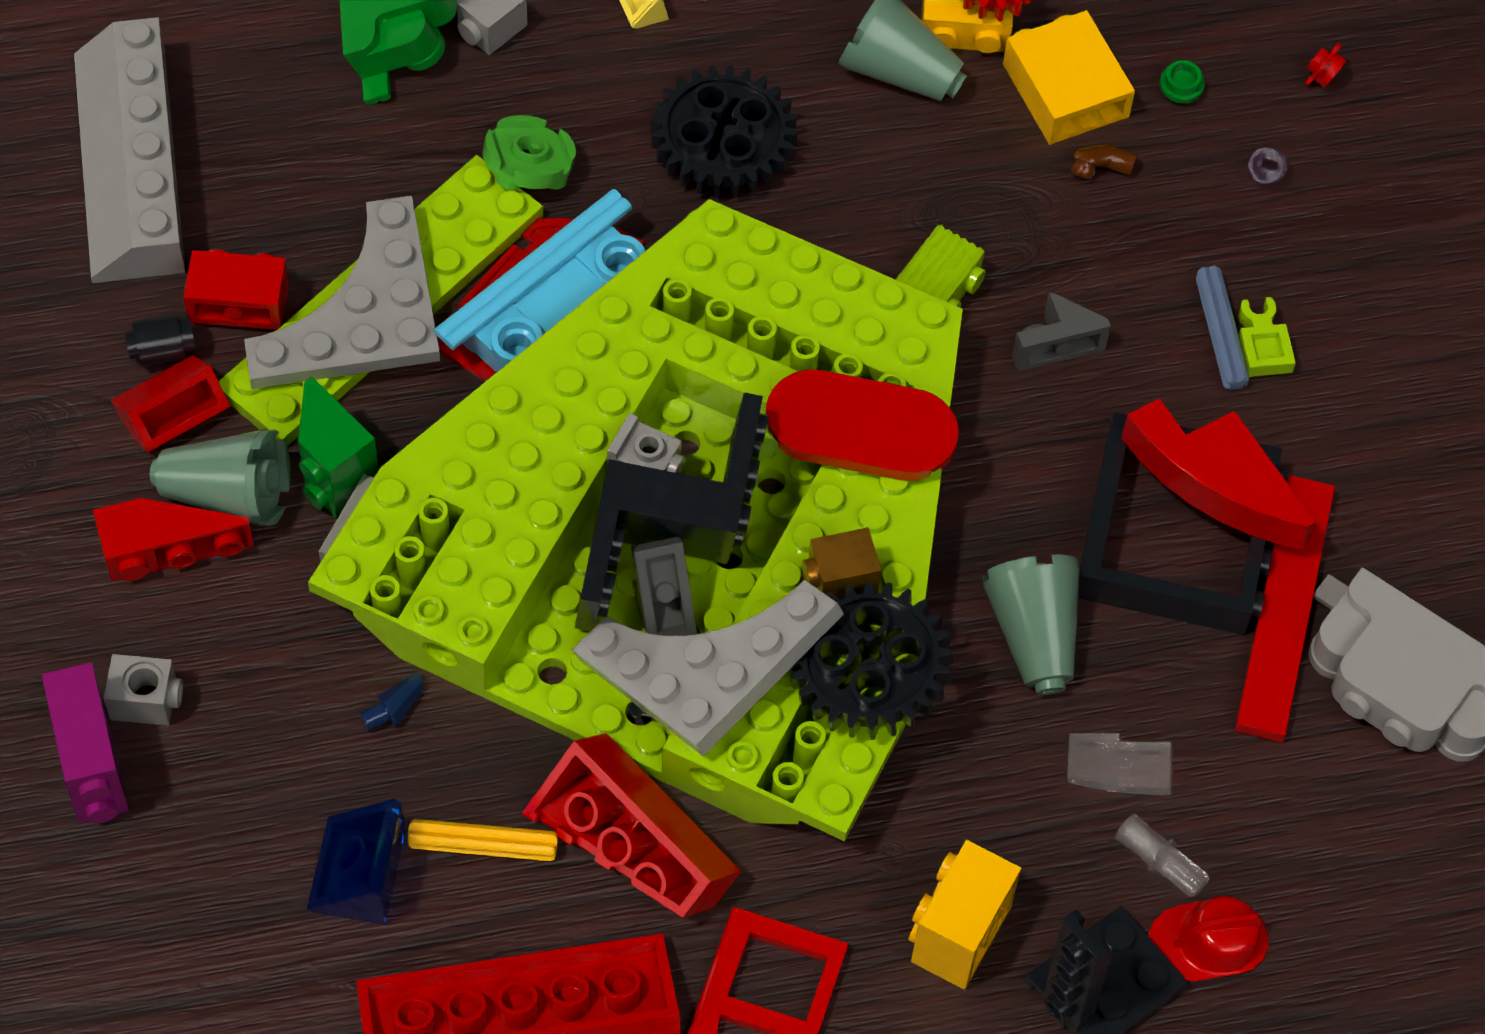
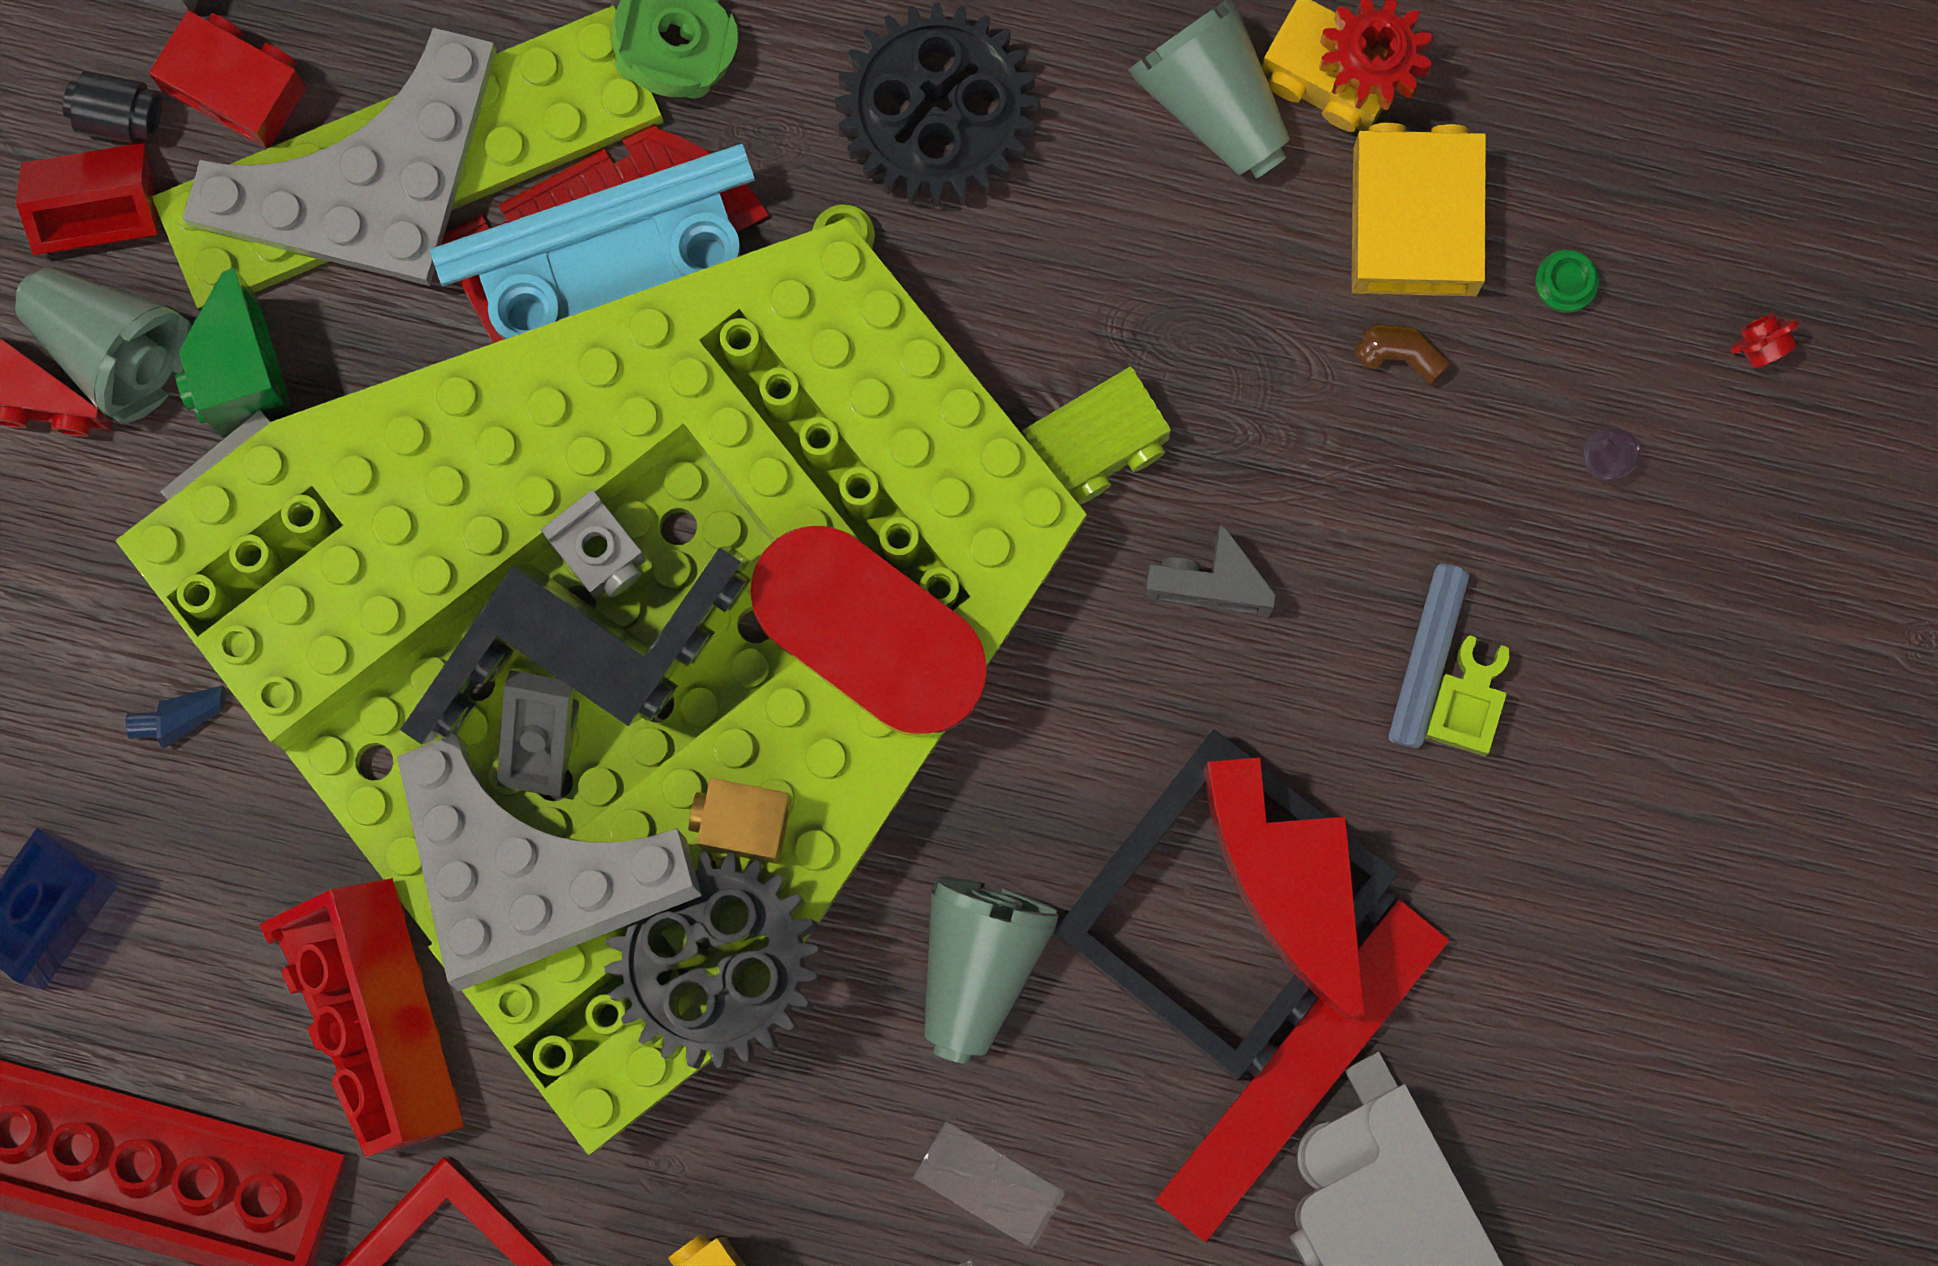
camera: 30 degrees right, 20 degrees up
(482, 839) = (196, 940): yellow axle -> none

